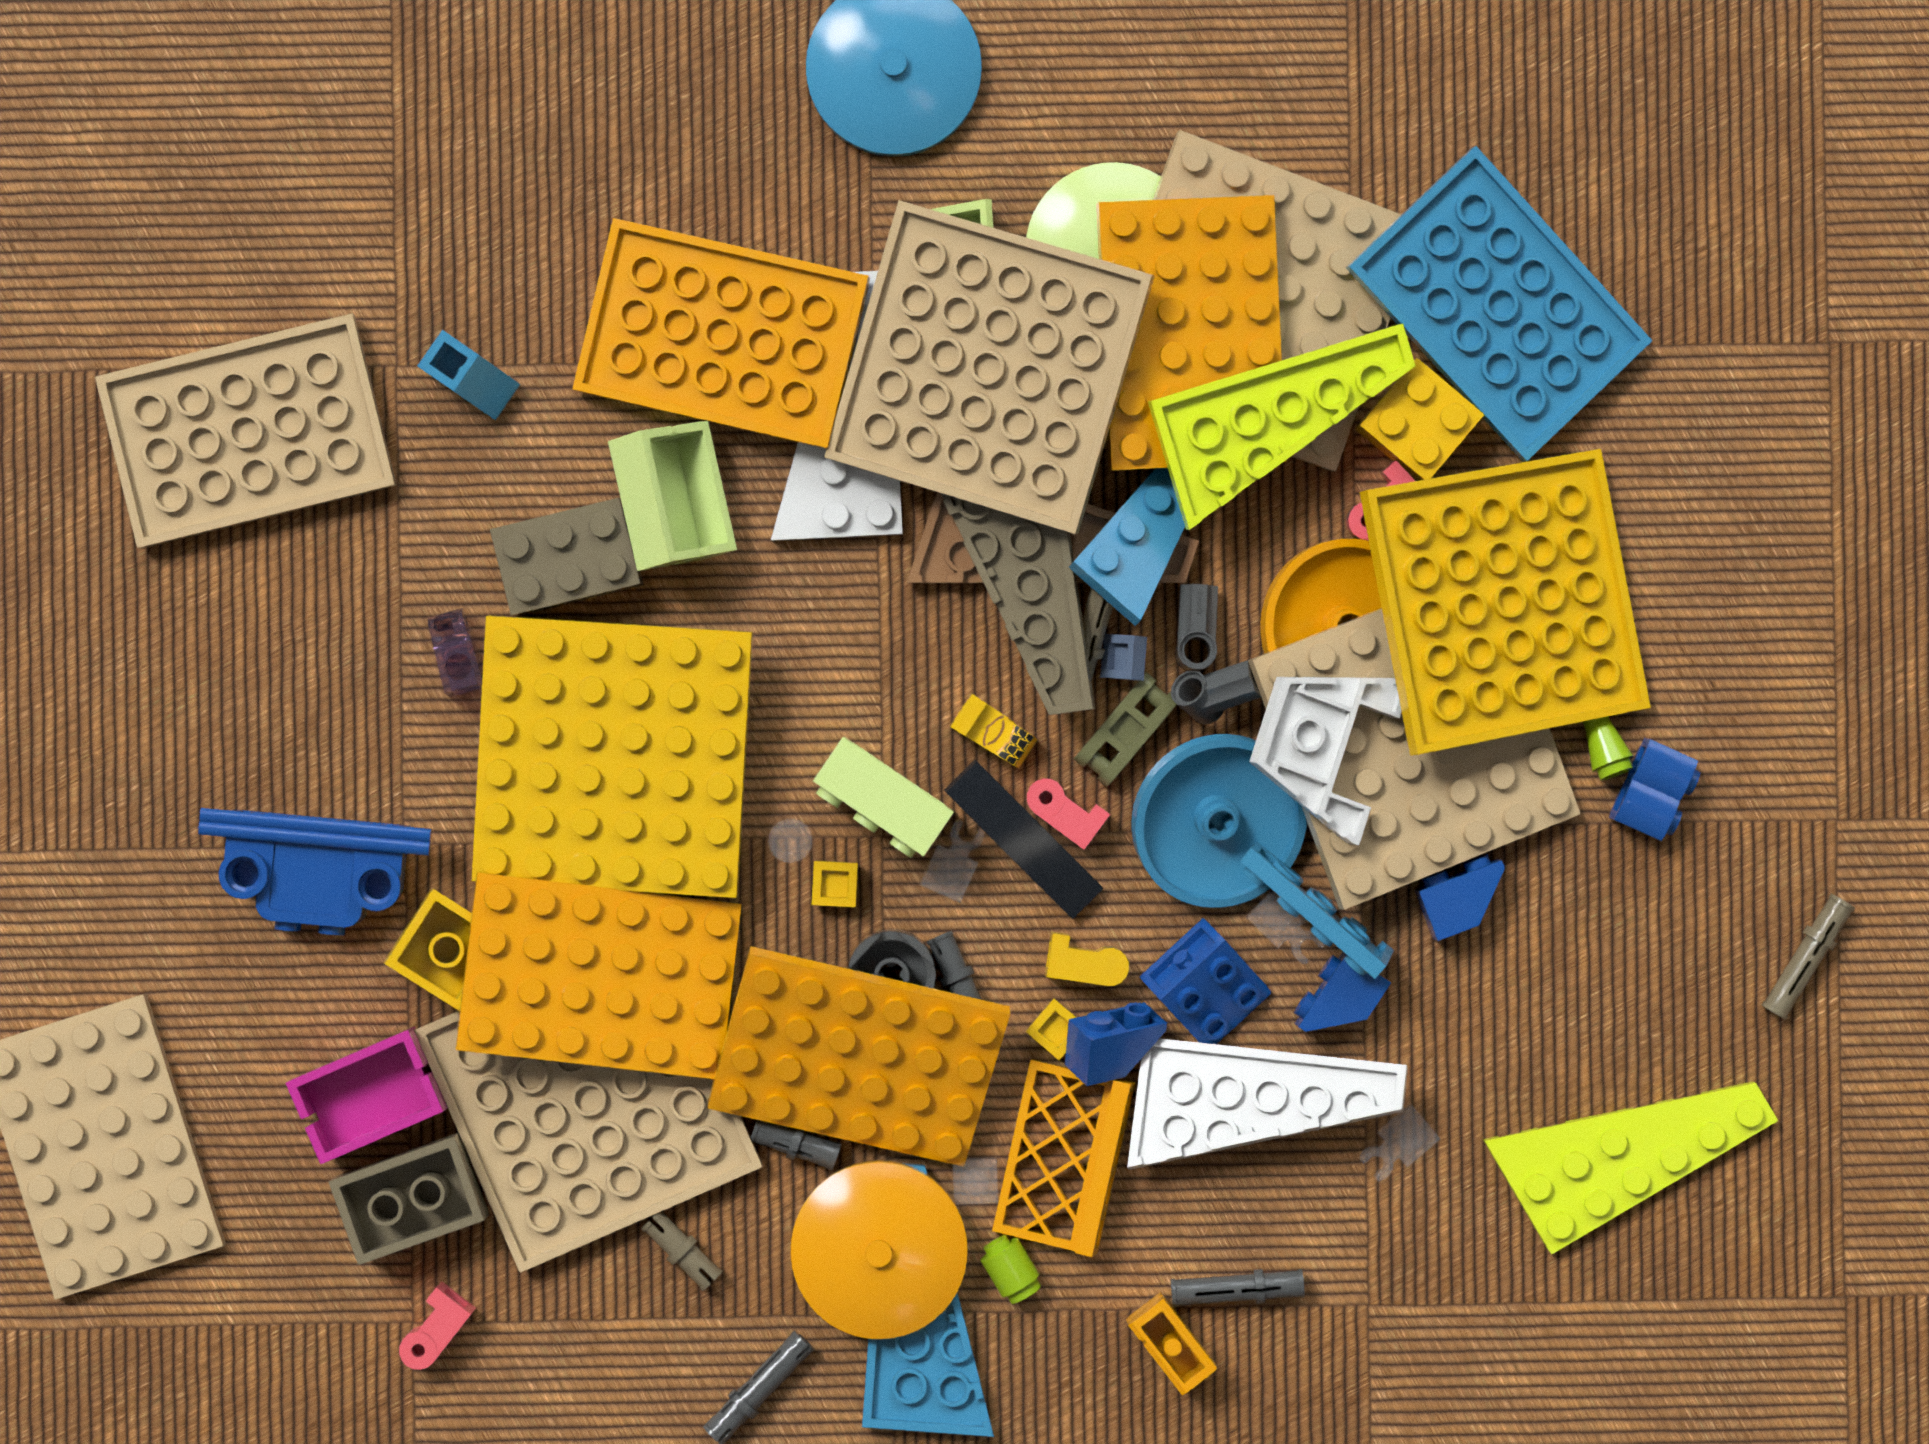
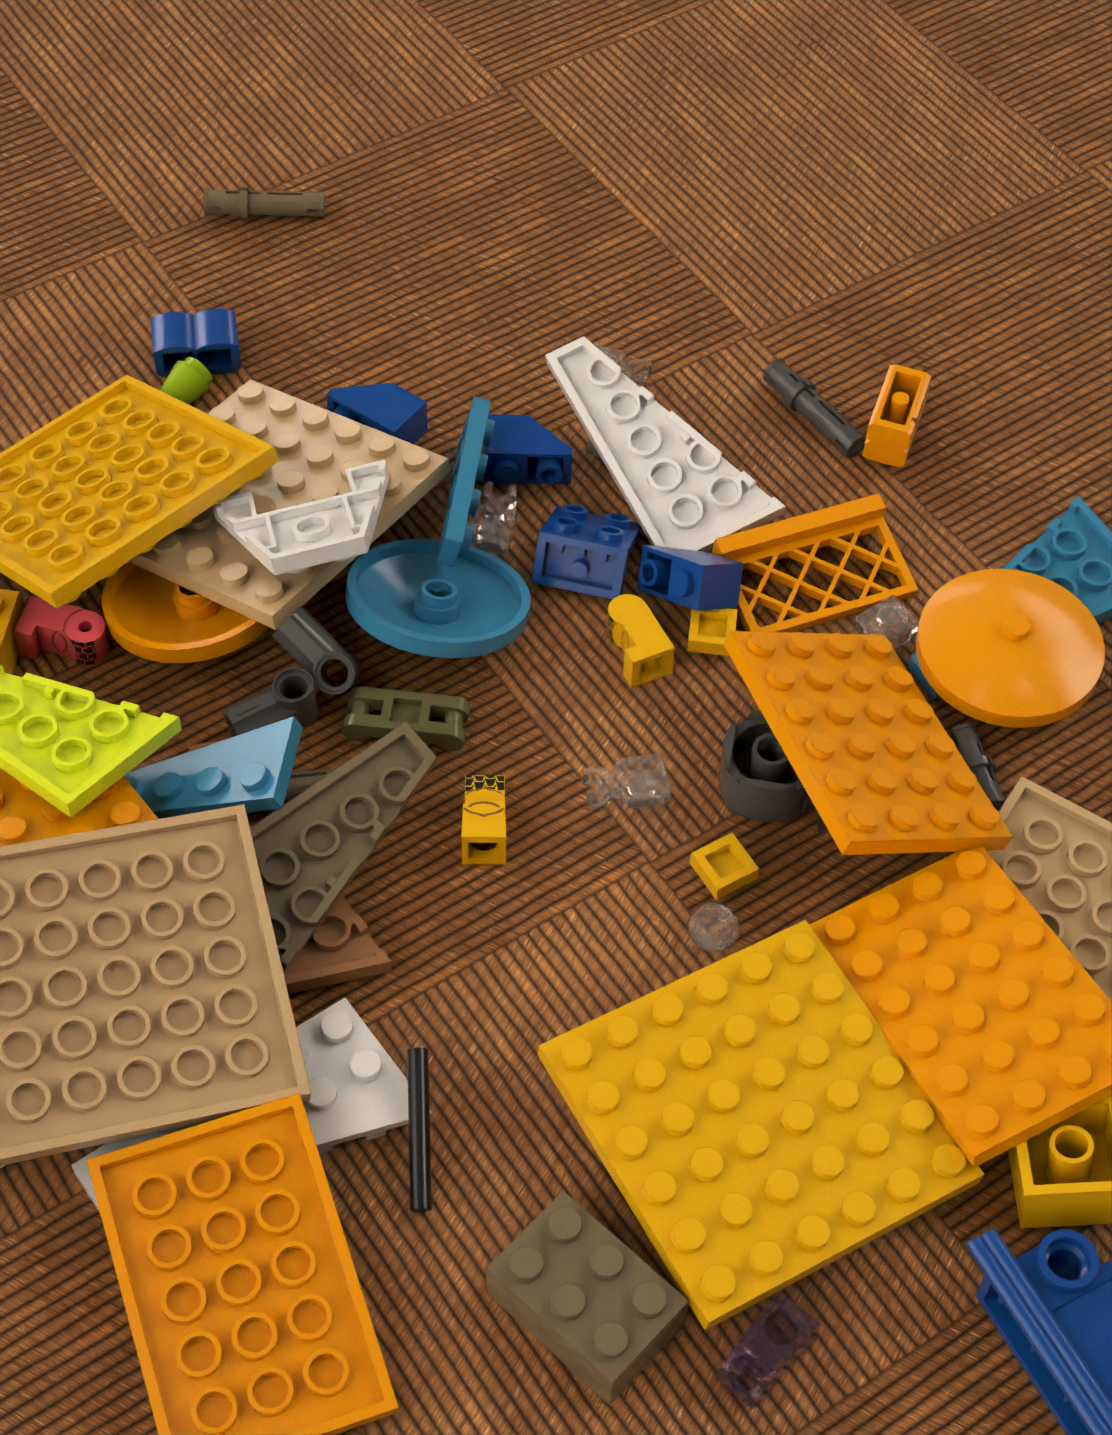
camera: 120 degrees left, 35 degrees down
(672, 495) = (449, 1217): yellowish green piece -> none
(772, 528) = (419, 1130): none -> black bar
(882, 798) = (616, 856): yellowish green piece -> none
(952, 966) = (712, 743): dark grey pin -> none
(1010, 1269) = (937, 556): lime brick -> none
(1023, 839) = (565, 739): black slope -> none
(1050, 803) = (517, 731): coral leg -> none
(1123, 657) = (337, 744): sand blue plate -> none
(1605, 1163) = (513, 244): neon yellow wing -> none

